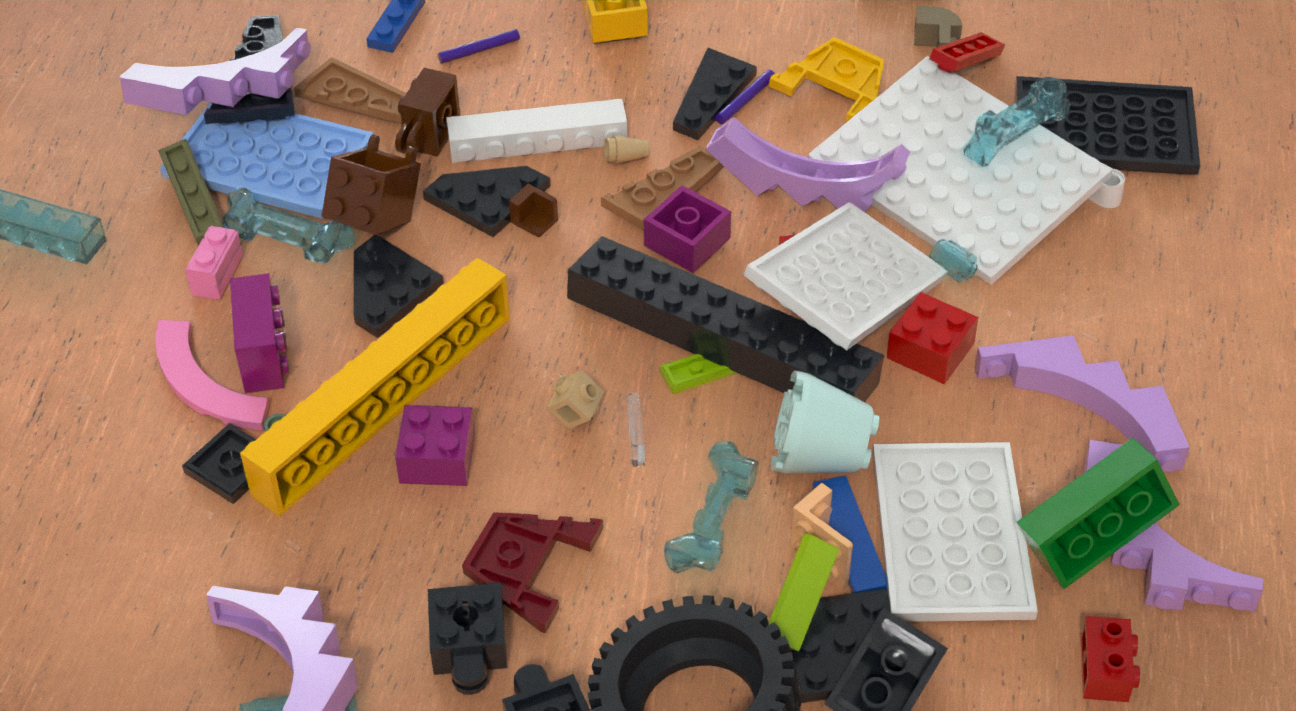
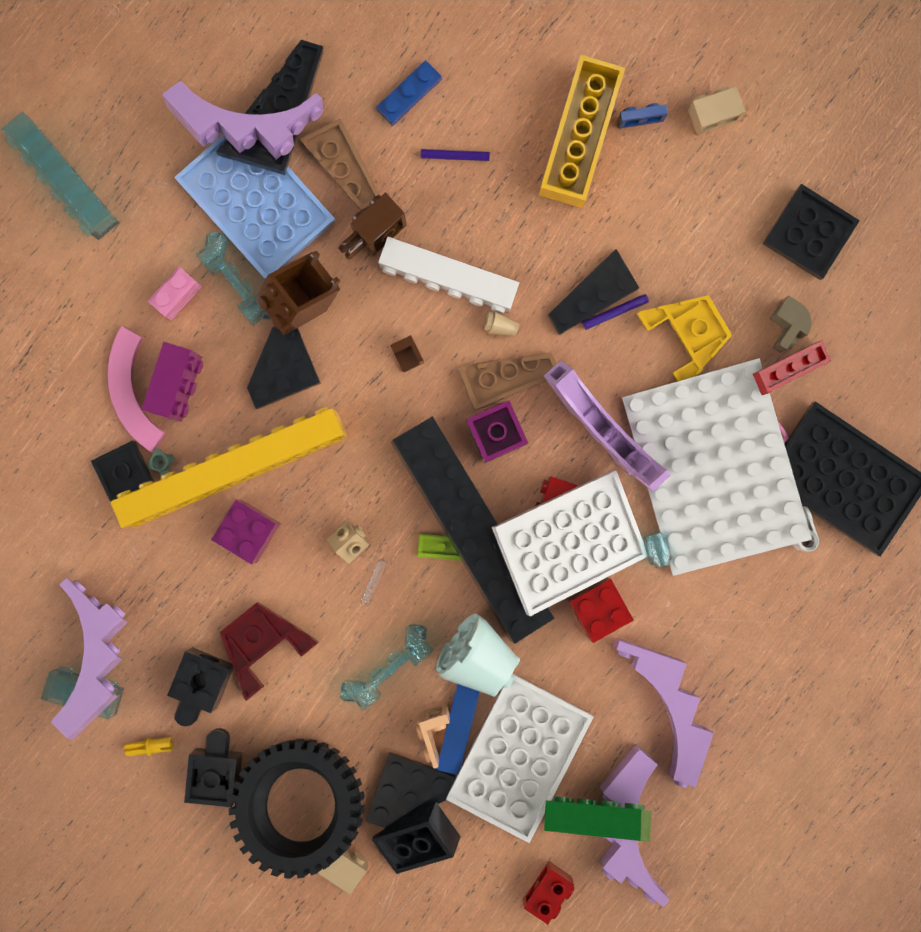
camera: 25 degrees right, 40 degrees up
(190, 188) = (186, 213): olive tile -> none
(483, 195) = (386, 316): black plate -> none
(803, 589) = (393, 775): lime tile -> none
(995, 131) = (772, 469): clear light blue plate -> none

